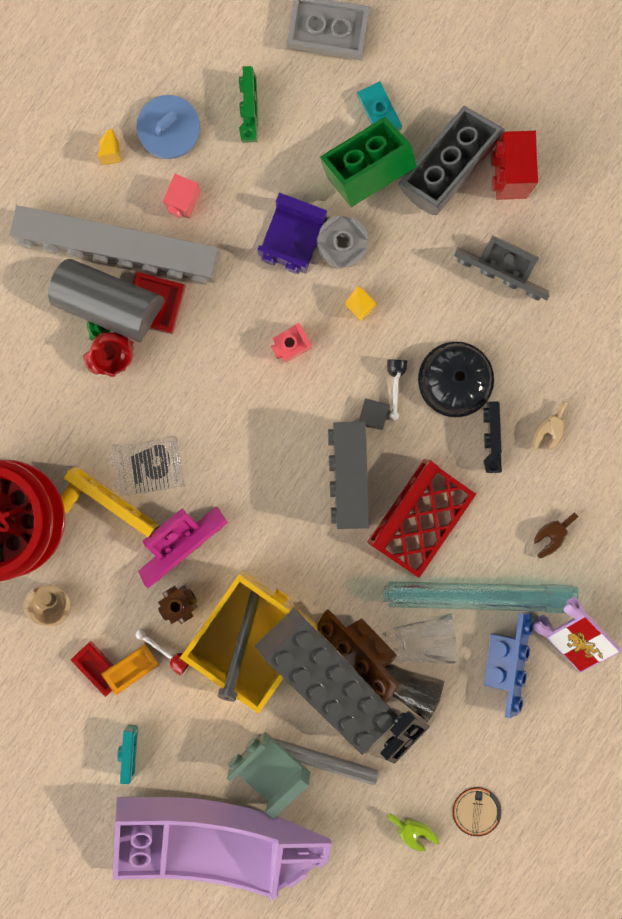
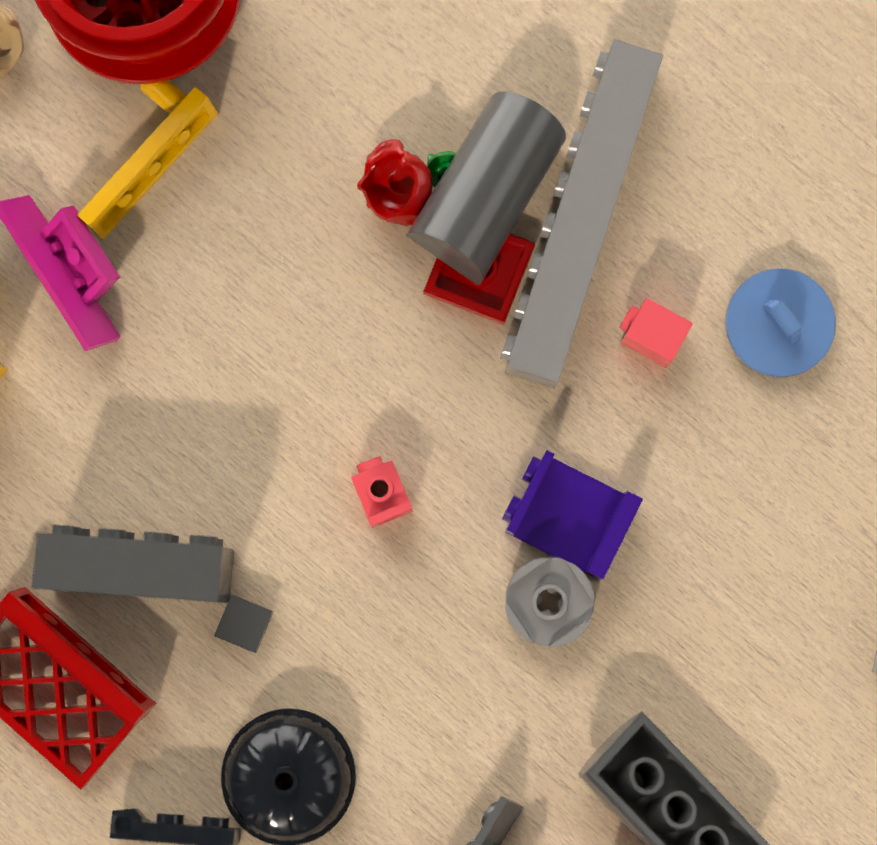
camera: 90 degrees right, 5 degrees down
(109, 148) = (750, 220): yellow slope -> none
(147, 466) = (201, 227): clear panel -> none
(249, 106) = (801, 464): green hinge -> none
(360, 303) = (437, 621): yellow slope -> none
(368, 161) = (682, 662): green brick -> none
(377, 104) = (778, 693): teal plate -> none
(396, 369) = (316, 672): hinge -> none

